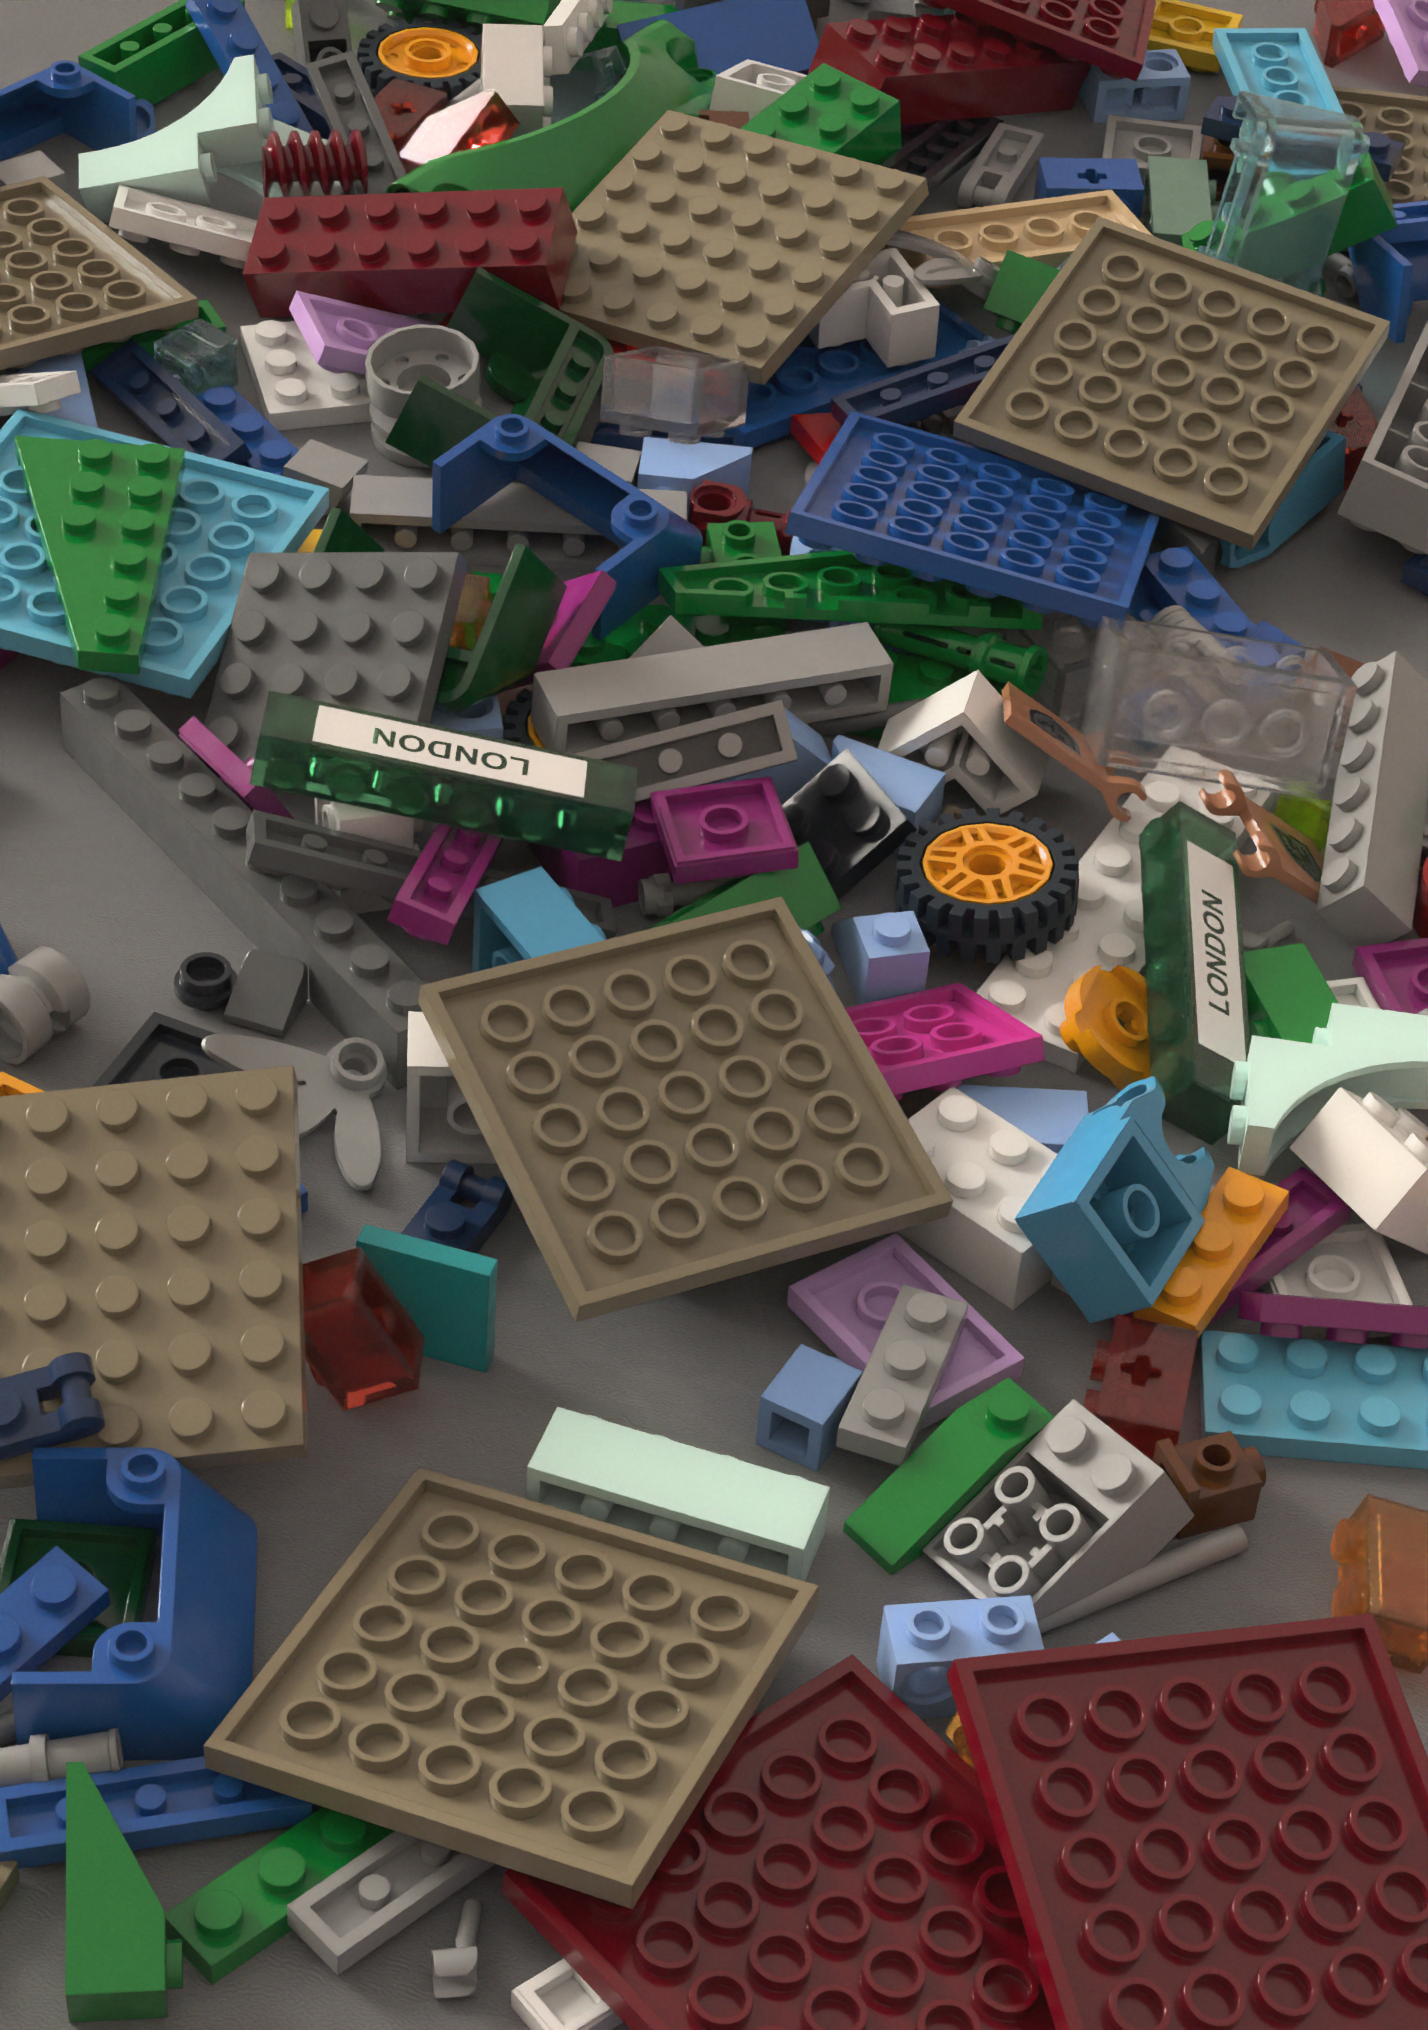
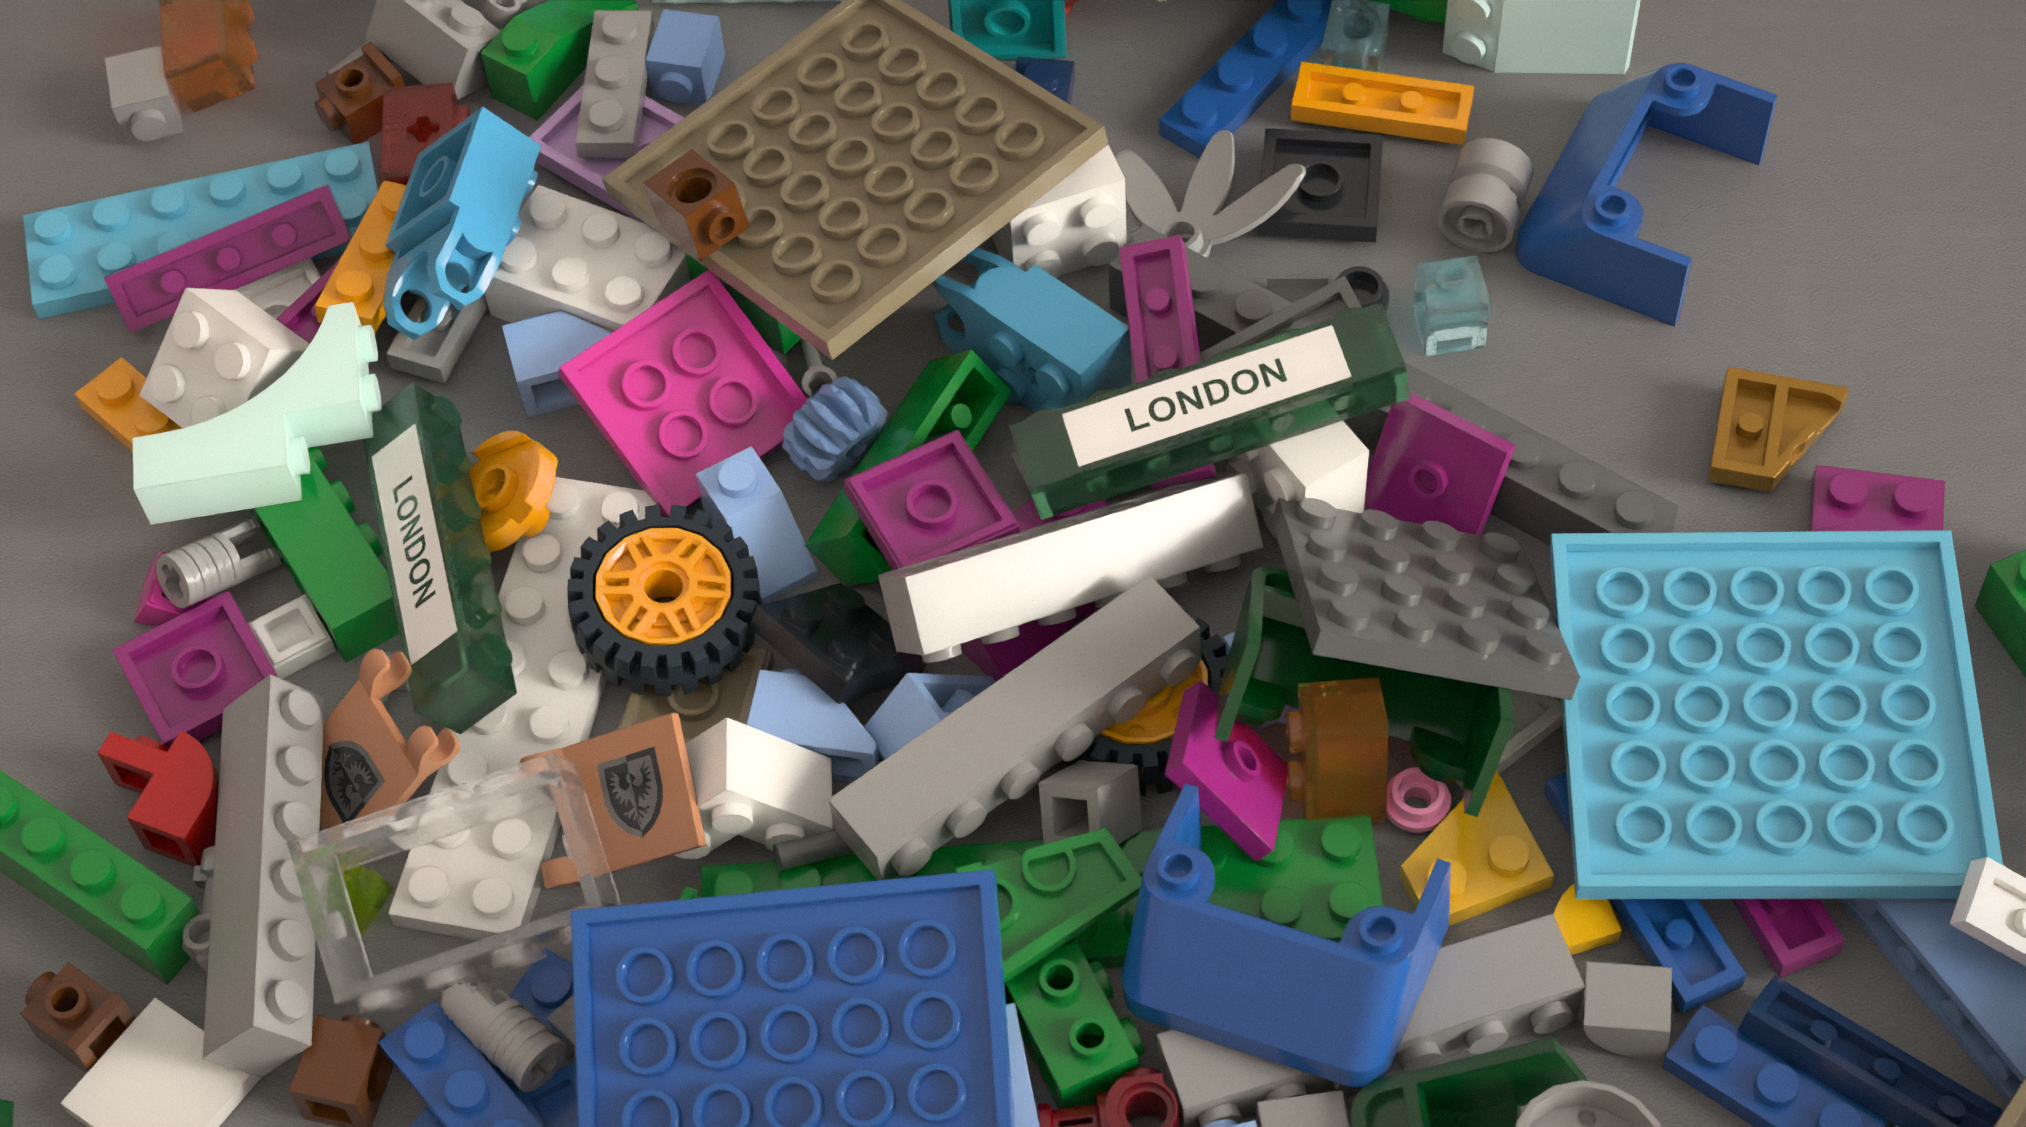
camera: 170 degrees right, 15 degrees up
(105, 537) = (1777, 713): green wing -> none
(130, 928) = (1451, 305): none -> clear light blue brick
(867, 1062) = (696, 204): none -> reddish brown brick

